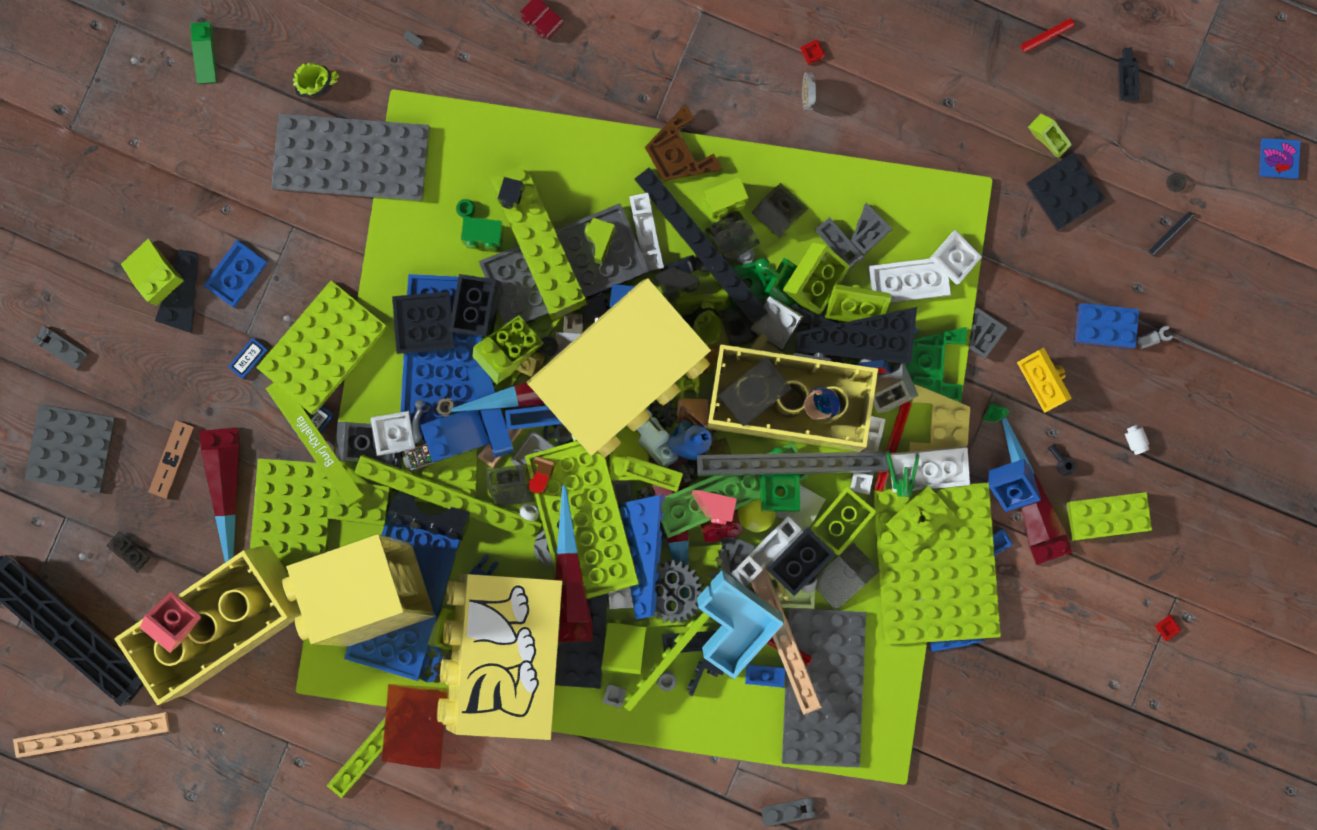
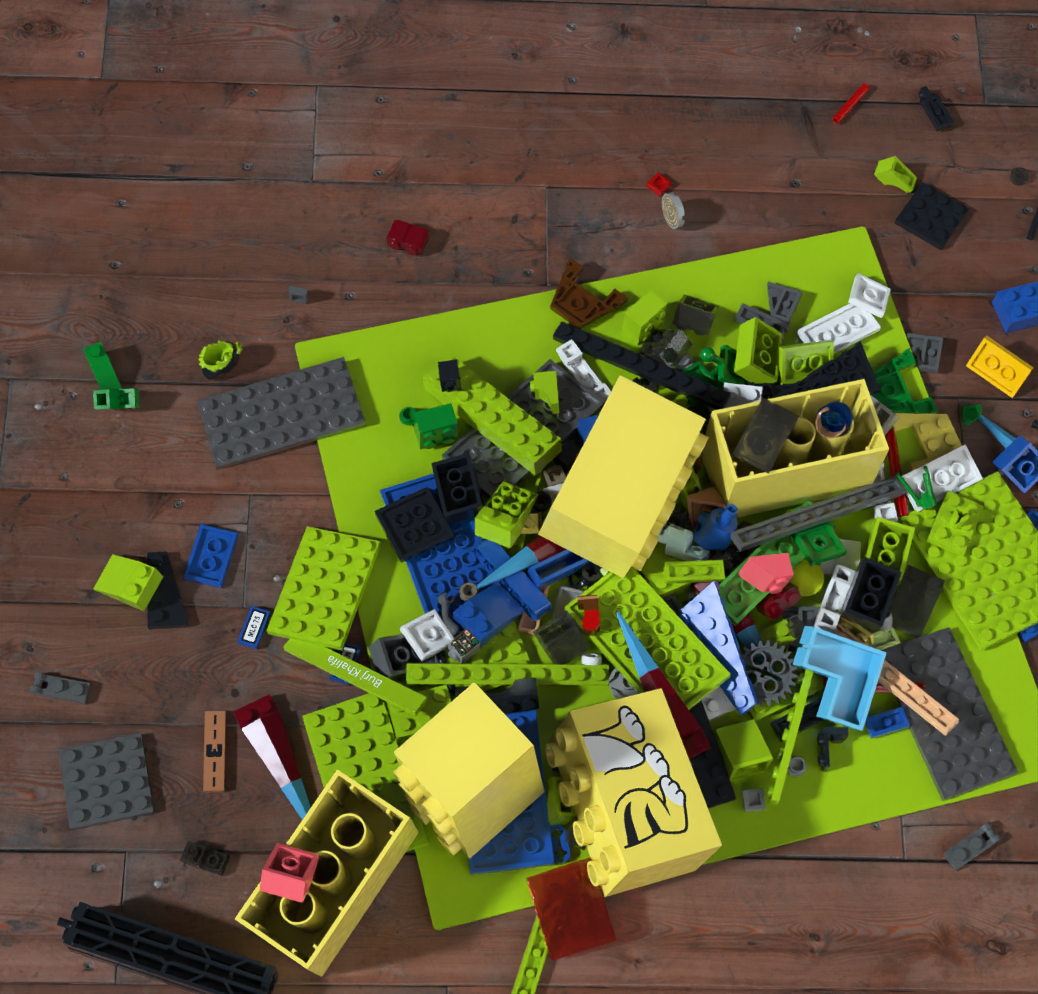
camera: 30 degrees left, 20 degrees down
(203, 84) = (116, 398): none -> green brick

